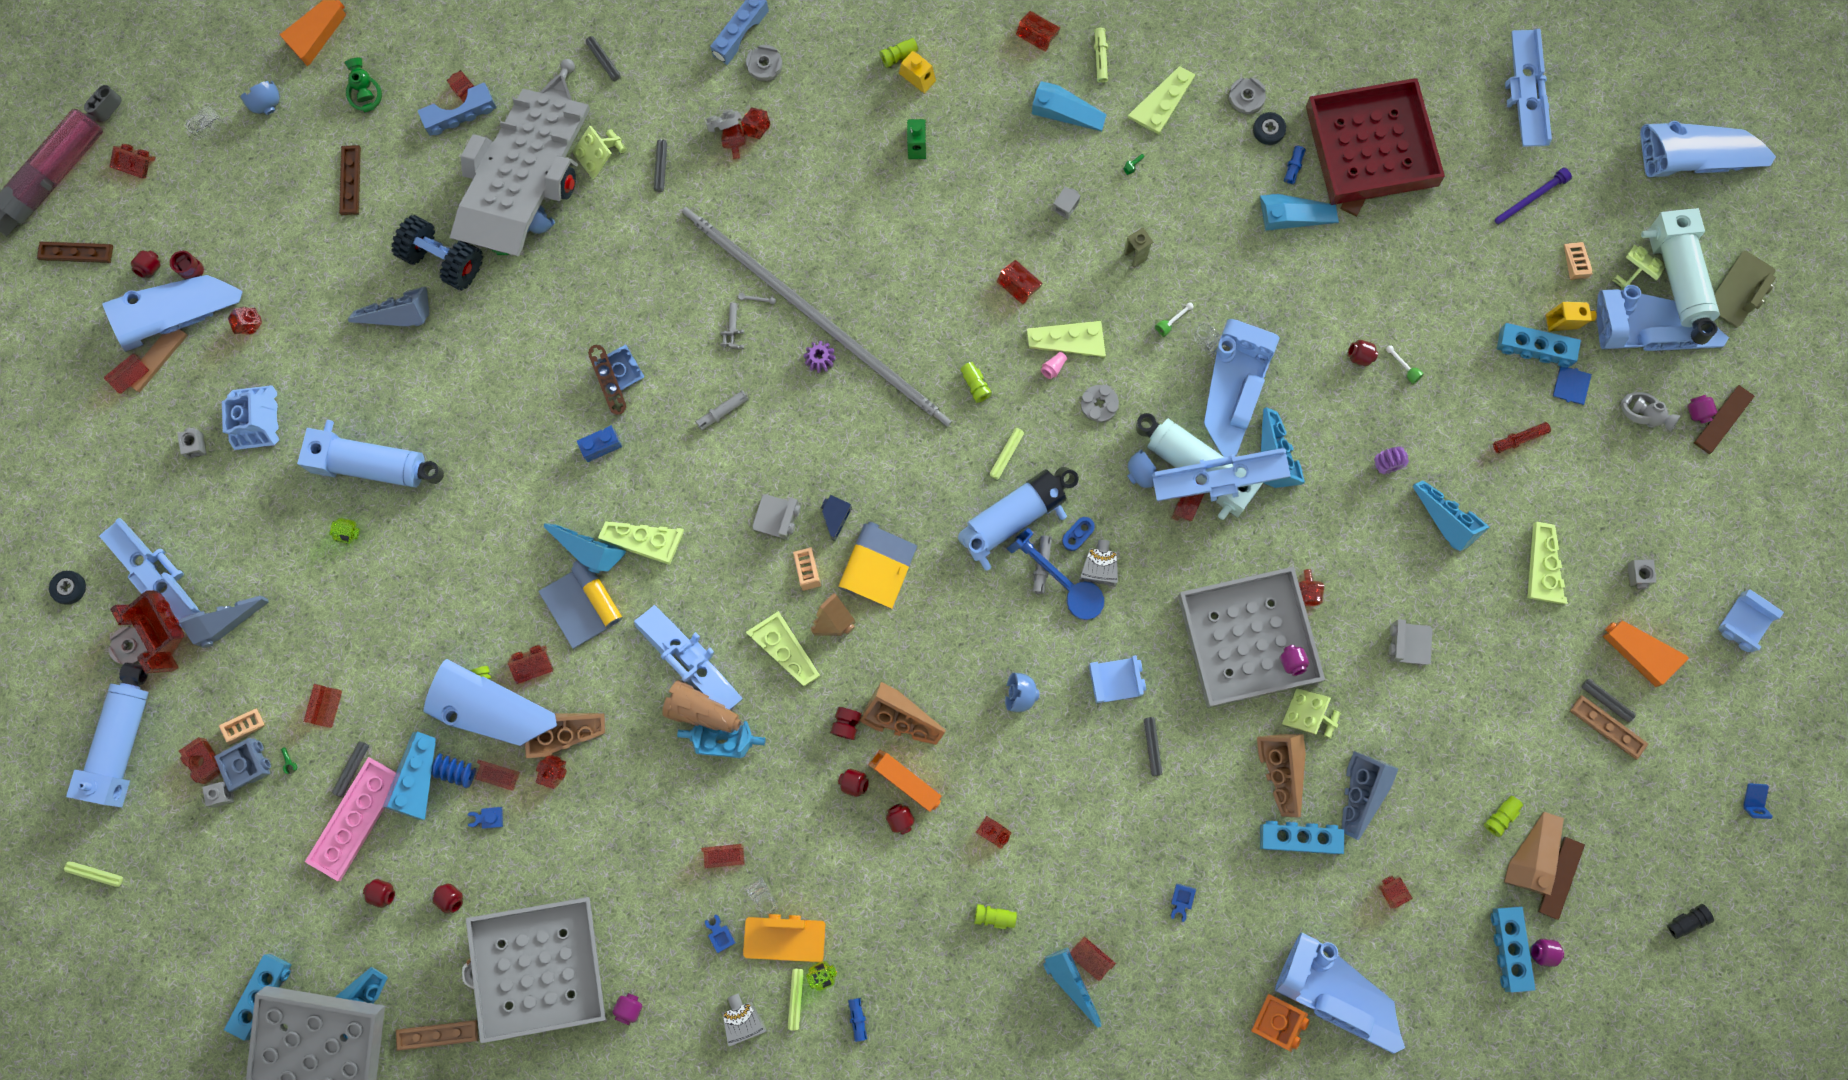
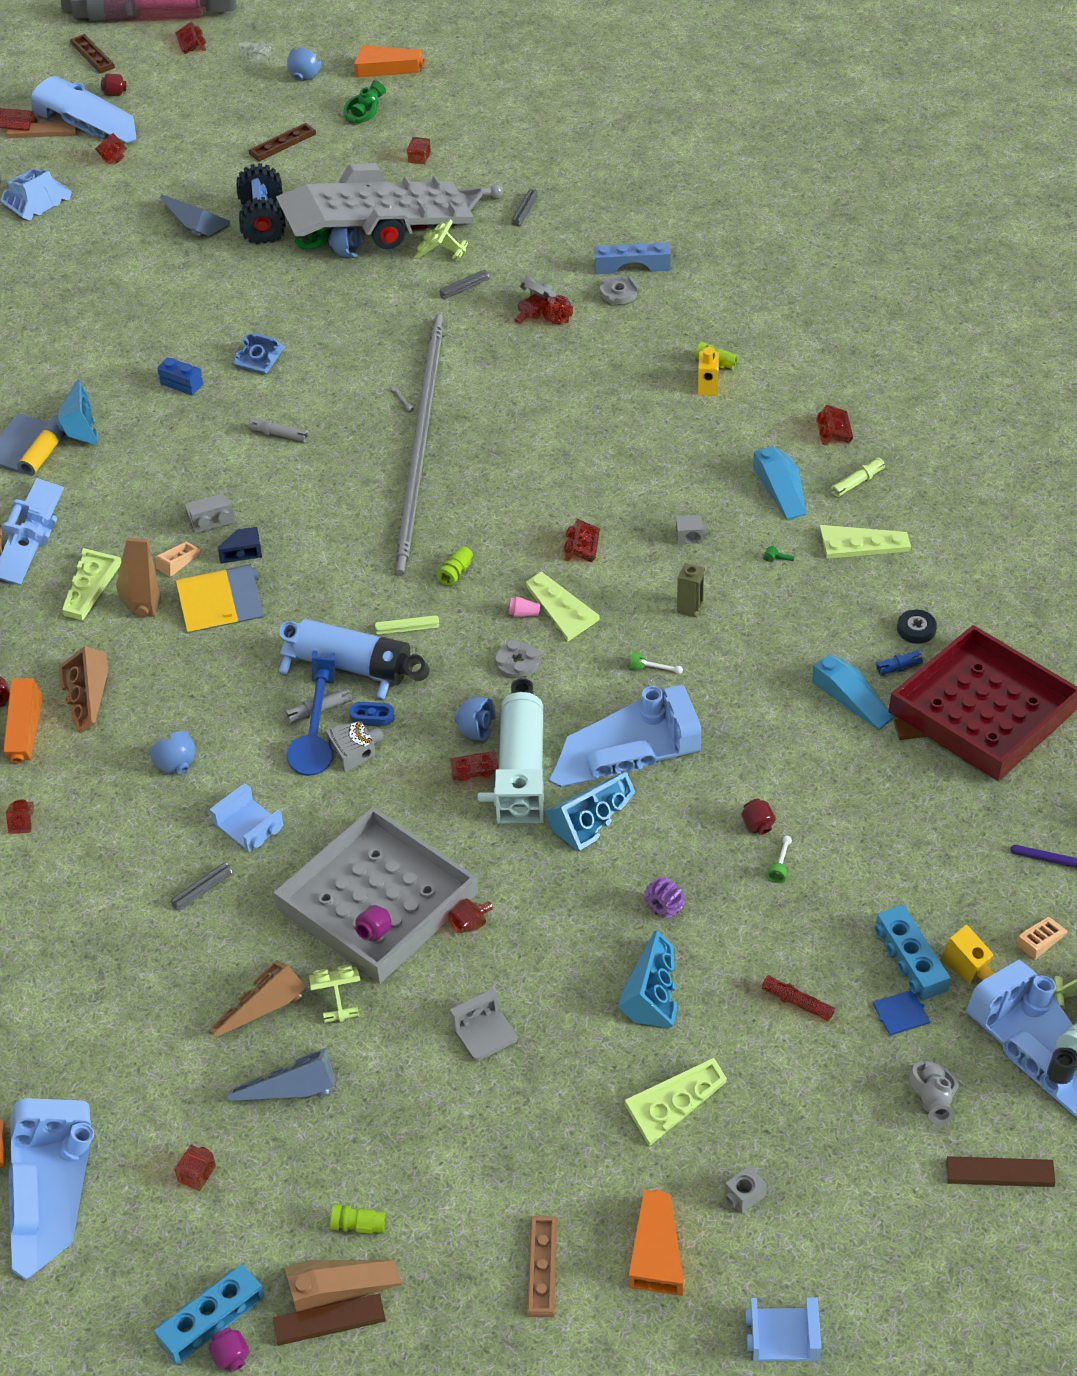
camera: 50 degrees right, 30 degrees down
(186, 265) = (129, 100): dark red wheel -> none
(330, 455) = (37, 244): light blue piece -> none
(477, 102) = (413, 164): medium blue arch -> none
(604, 380) = (237, 346): reddish brown beam -> none
(647, 541) = (117, 448): yellowish green wing -> none
(732, 329) = (358, 399): light grey piece -> none
(814, 362) = (383, 458): medium lavender gear -> none
(845, 723) = (40, 656): dark red wheel -> none
(916, 136) = (646, 404): green torso -> none
(1183, 898) = (56, 995): blue plate -> none
(1247, 86) = (923, 599): light grey plate -> none
(1259, 468) = (507, 751): light blue piece -> none
(1333, 845) = (173, 1030): dark azure brick -> none
(1608, 700) = (572, 1247): dark grey axle -> none
(1702, 409) = (988, 1137): magenta head -> none

